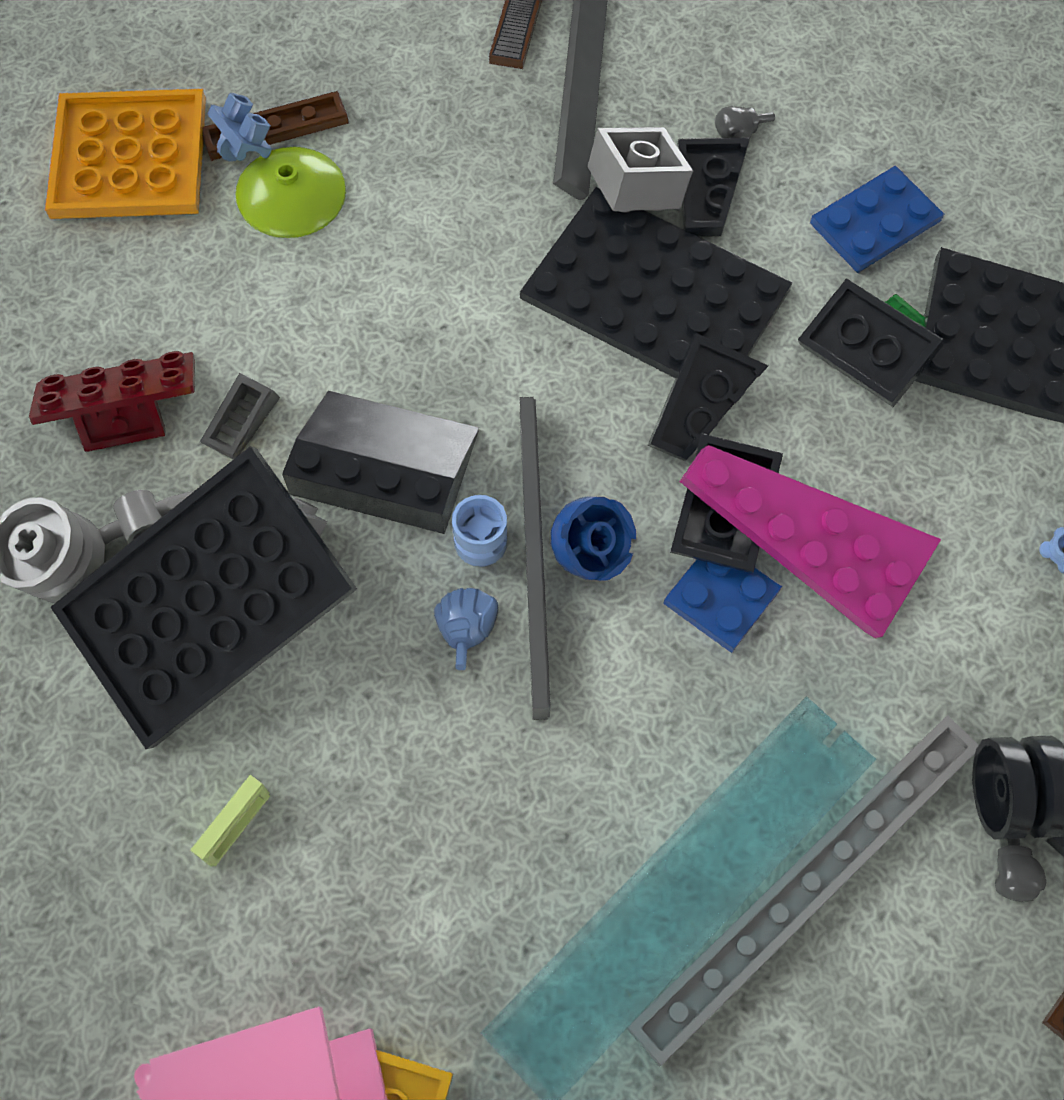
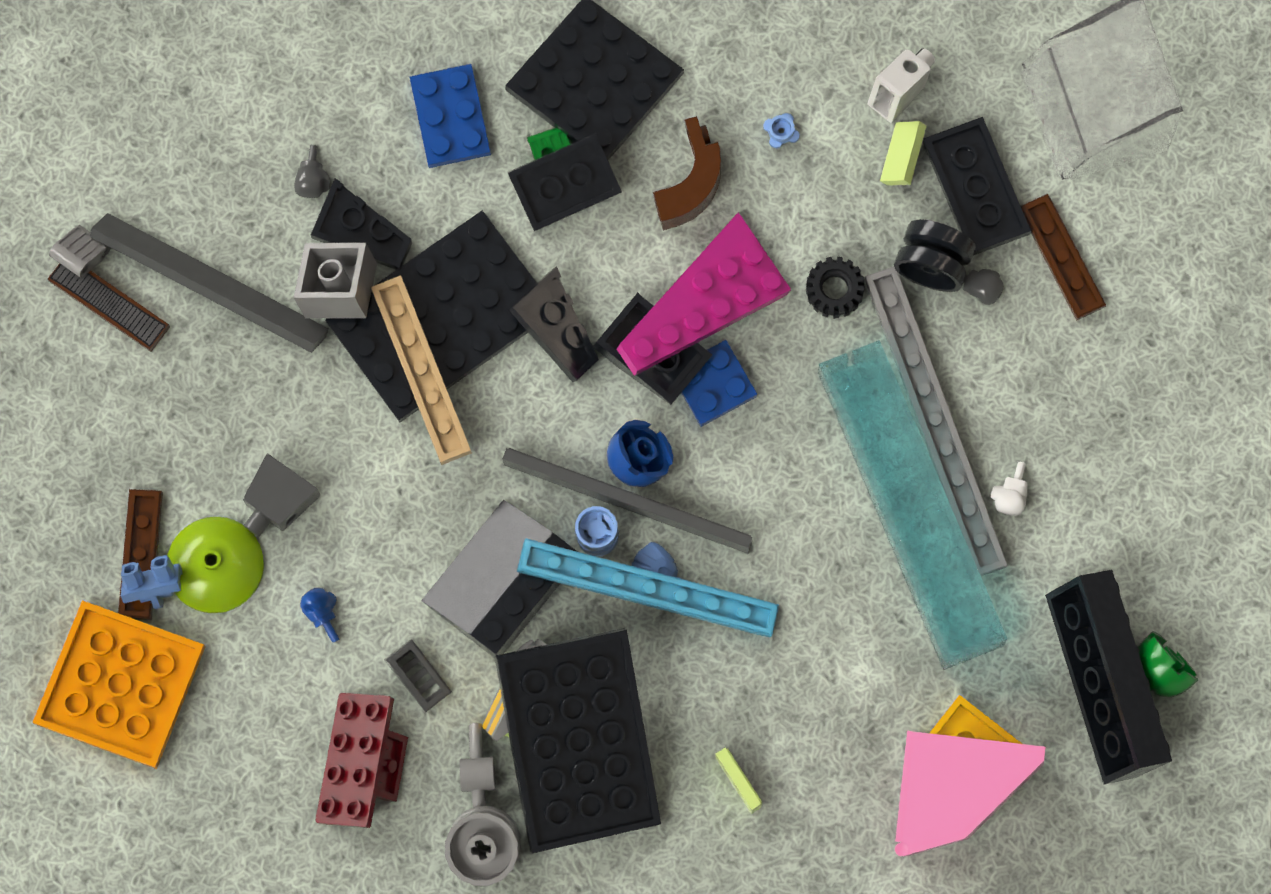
camera: 60 degrees left, 10 degrees up
(277, 294) = (318, 608): none -> blue piece
(383, 211) = (277, 496): none -> dark grey torso
(432, 616) = (647, 588): none -> medium azure tile
(579, 283) = (421, 370): none -> tan plate
(763, 1033) = (1013, 494): none -> white piece
(933, 672) = (840, 269): none -> black tyre
(944, 484) = (693, 195): none -> reddish brown arch

